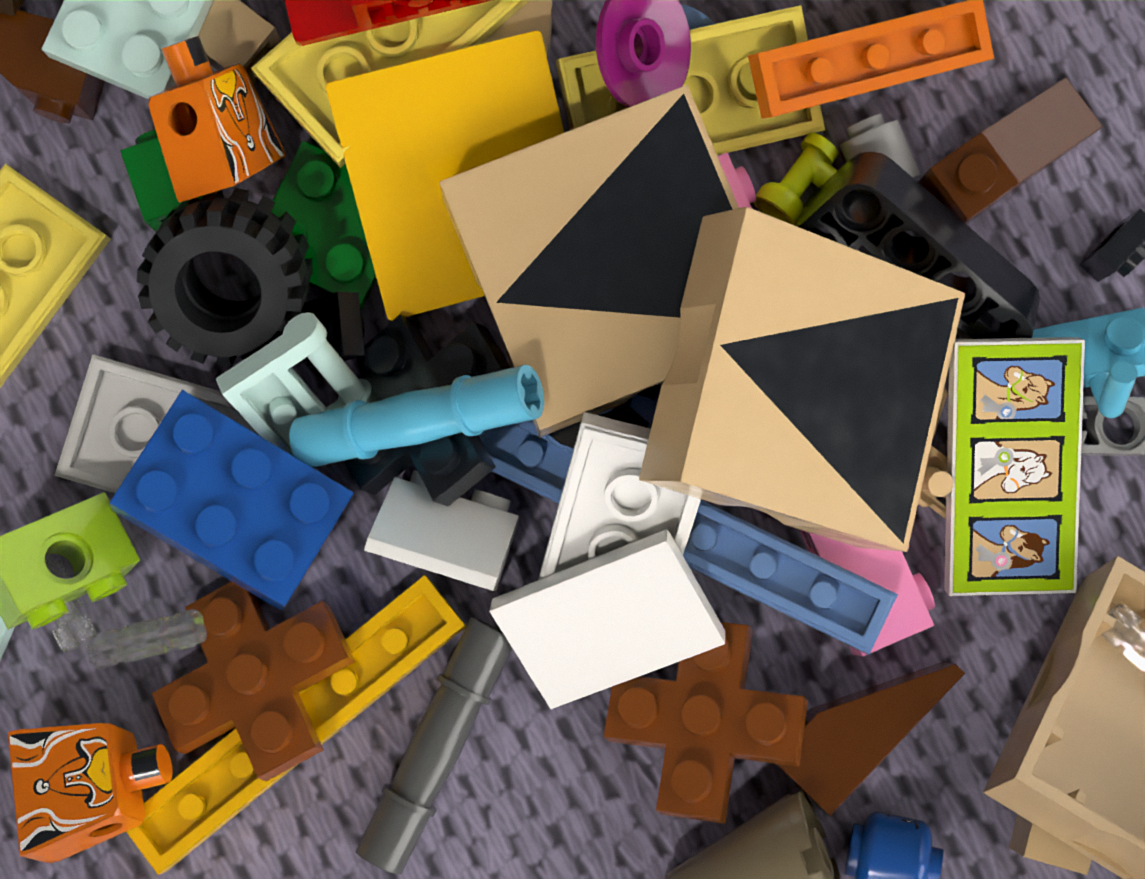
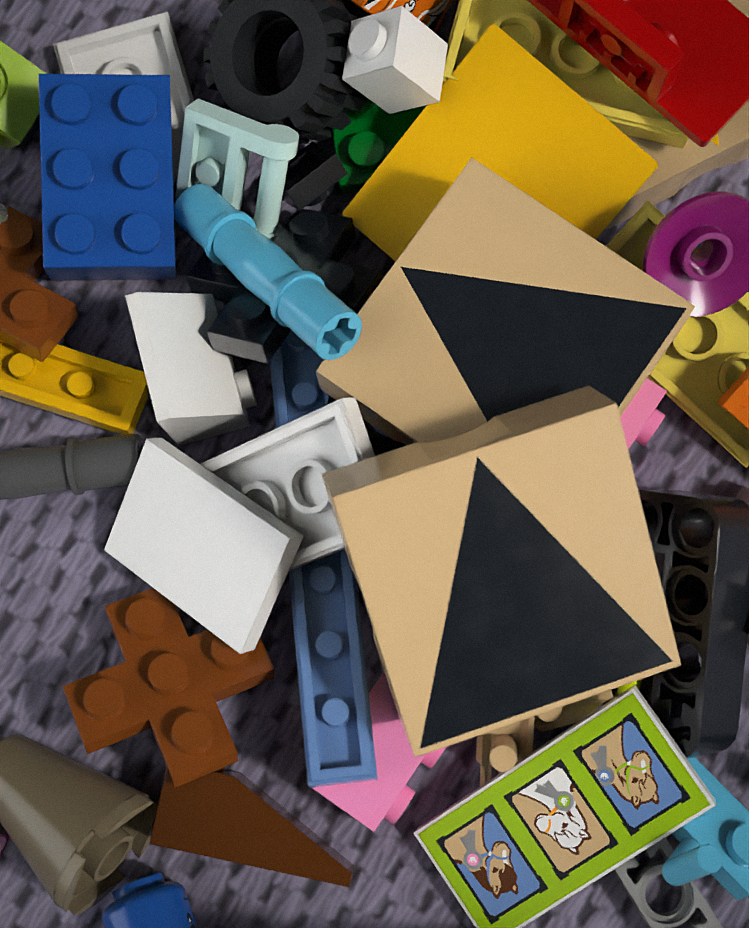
camera: 70 degrees right, 5 degrees down
(300, 188) = (395, 60): none -> white brick
(813, 165) = (711, 477): neon yellow piece -> none

